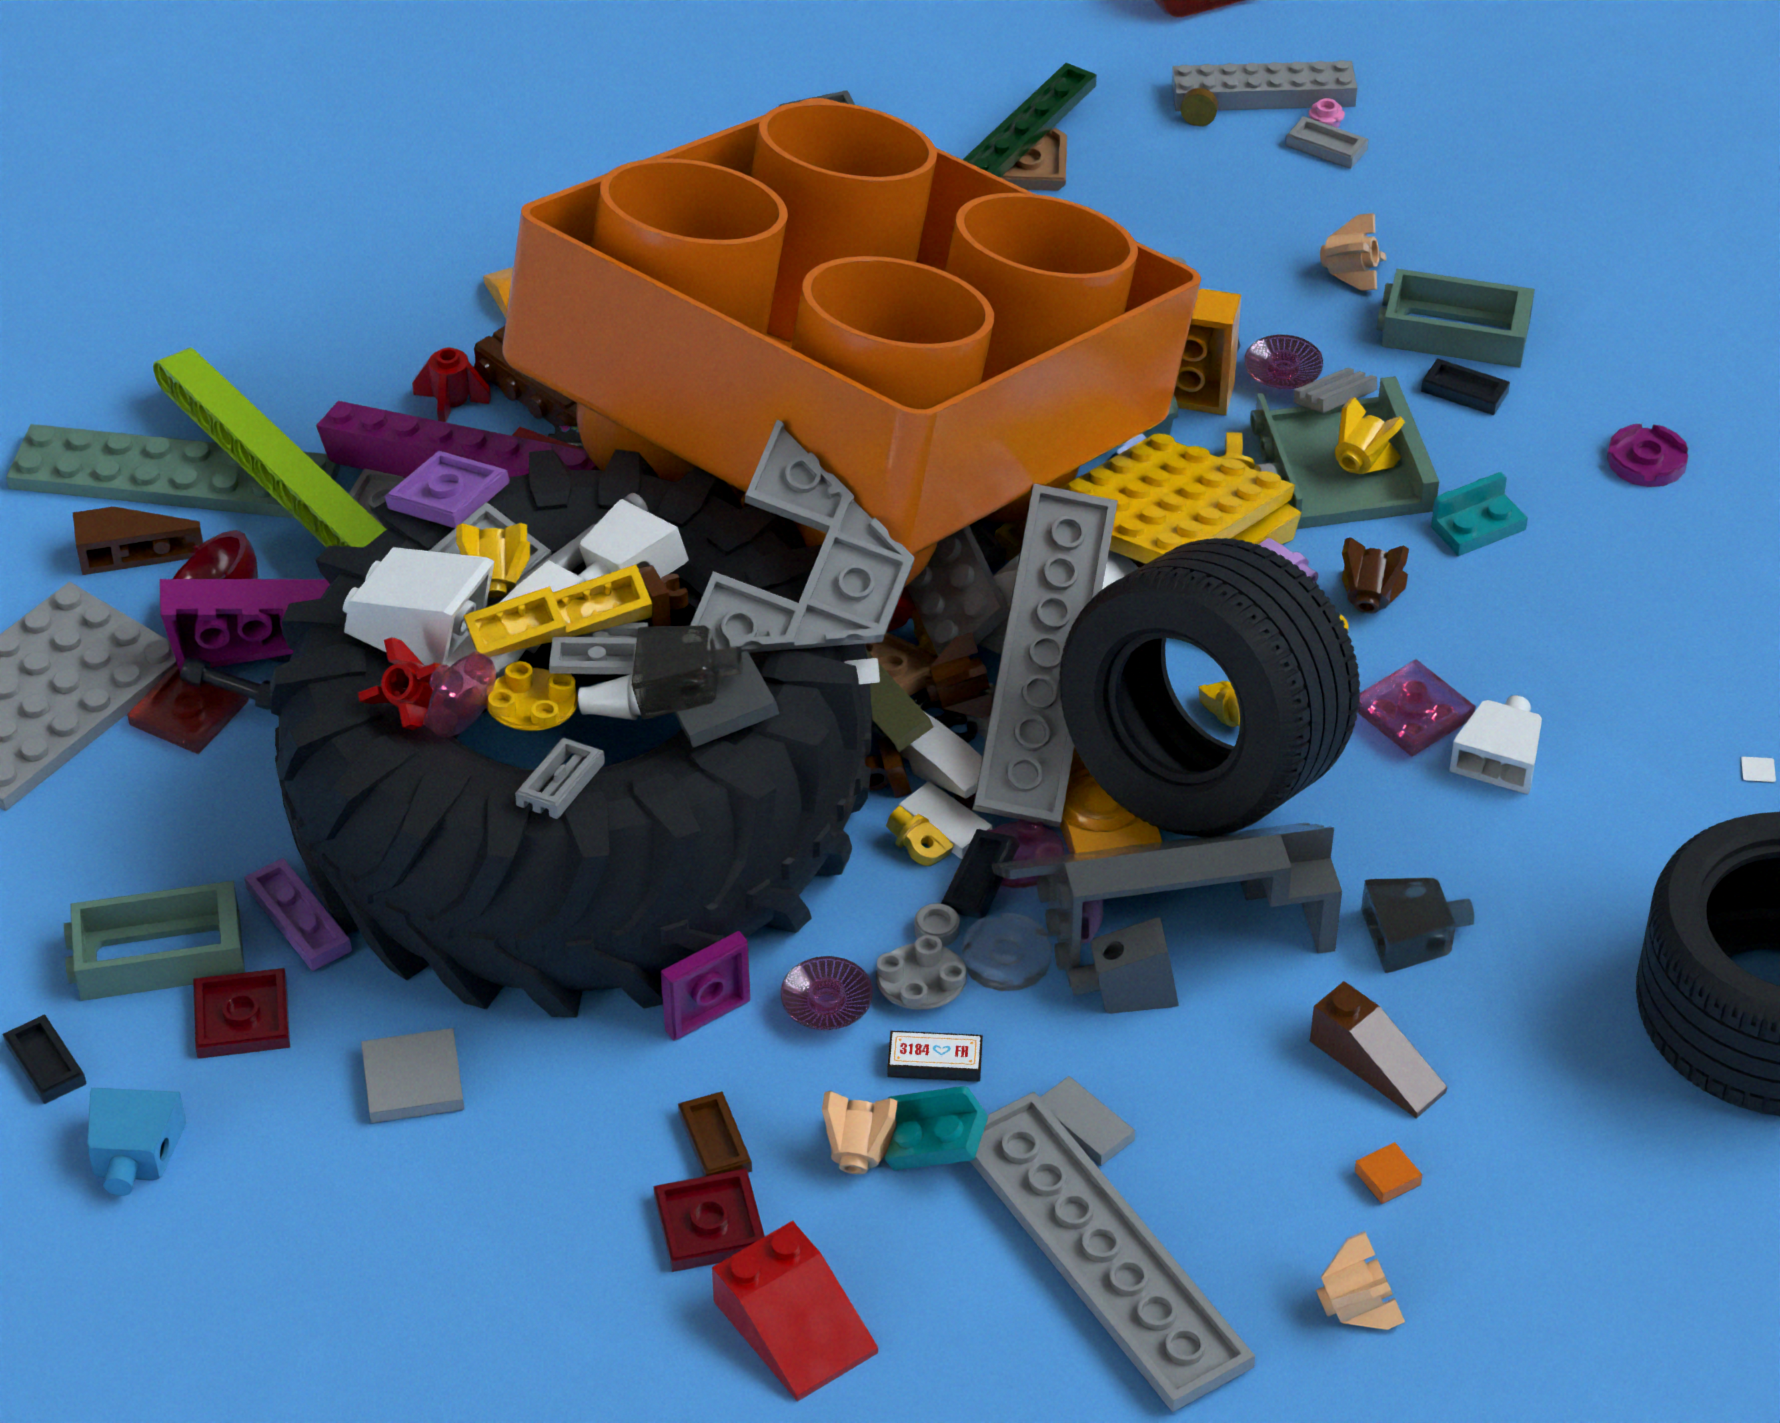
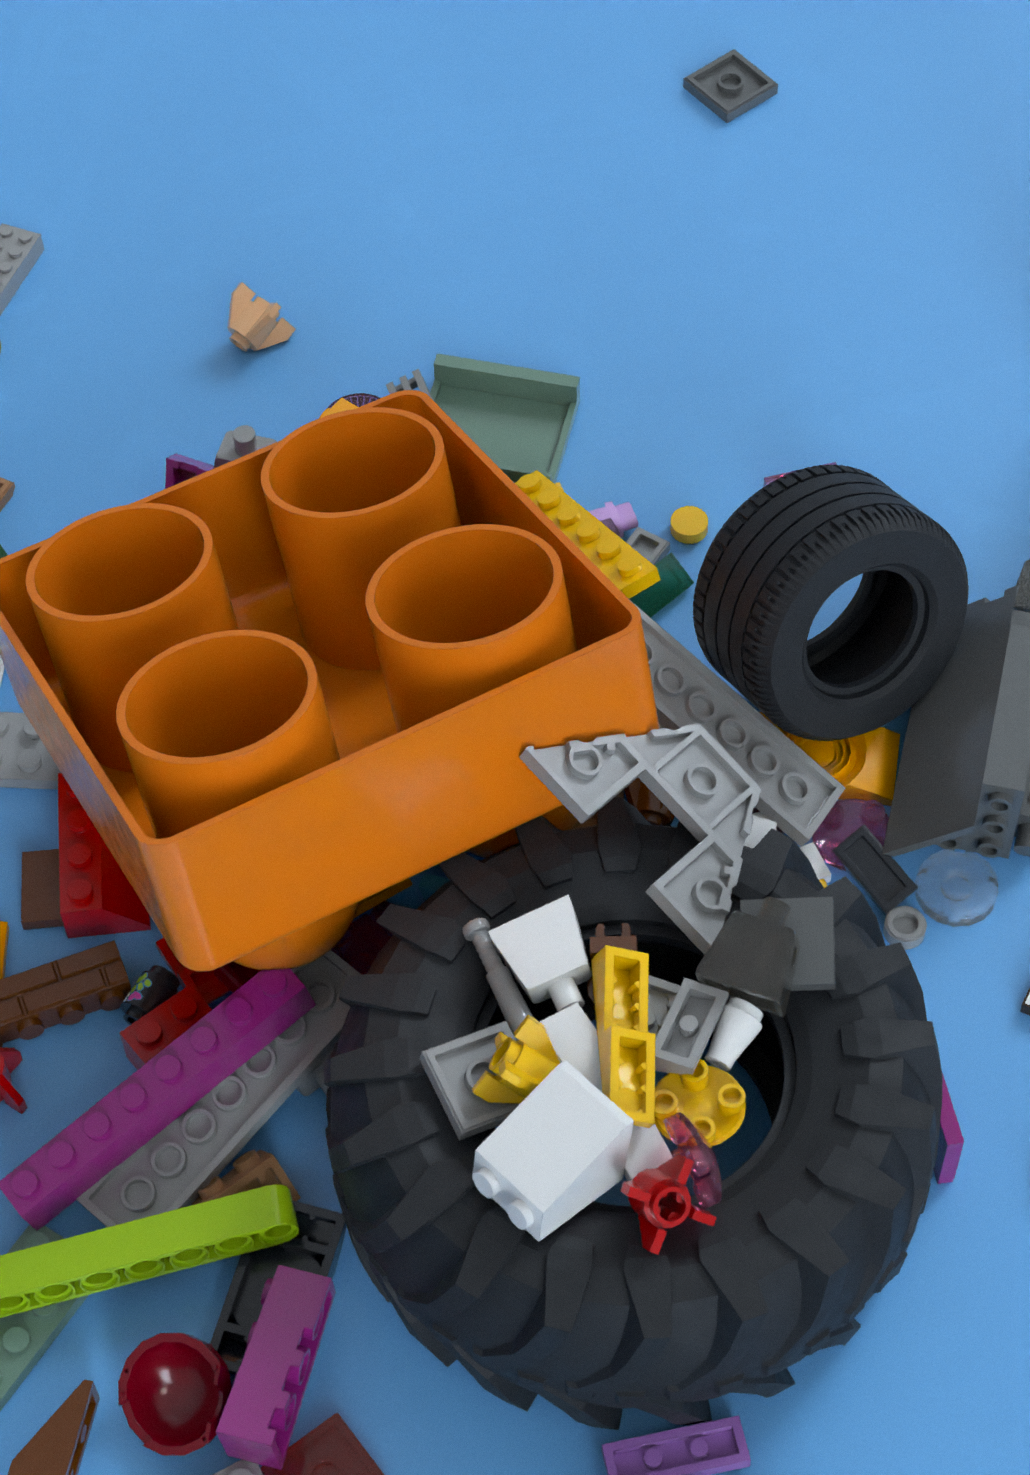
camera: 65 degrees left, 10 degrees up
(198, 673) = (305, 1447): black bar -> none
(412, 1075) = (920, 1416): light grey tile -> none
(447, 489) = (373, 1083): medium lavender tile -> none
(567, 780) = (859, 1138): light grey tile -> none
(826, 993) = (978, 1025): clear pink dish -> none
(921, 974) = (964, 958): light grey dish -> none
(1327, 112) = (49, 271): bright pink plate -> none
(1327, 142) = (83, 285): light grey tile -> none
(1365, 441) = (504, 406): yellow brick -> none
(1373, 575) = (659, 468): reddish brown brick -> none
(1461, 301) = (359, 271): sand green piece -> none
(1465, 386) = (449, 321): black tile -> none
(1476, 515) = (613, 376): teal bracket -> none
(1499, 744) = (886, 455): white torso -> none
(1647, 455) = (594, 244): magenta tile -> none
(1758, 769) = (964, 326): white sticker -> none

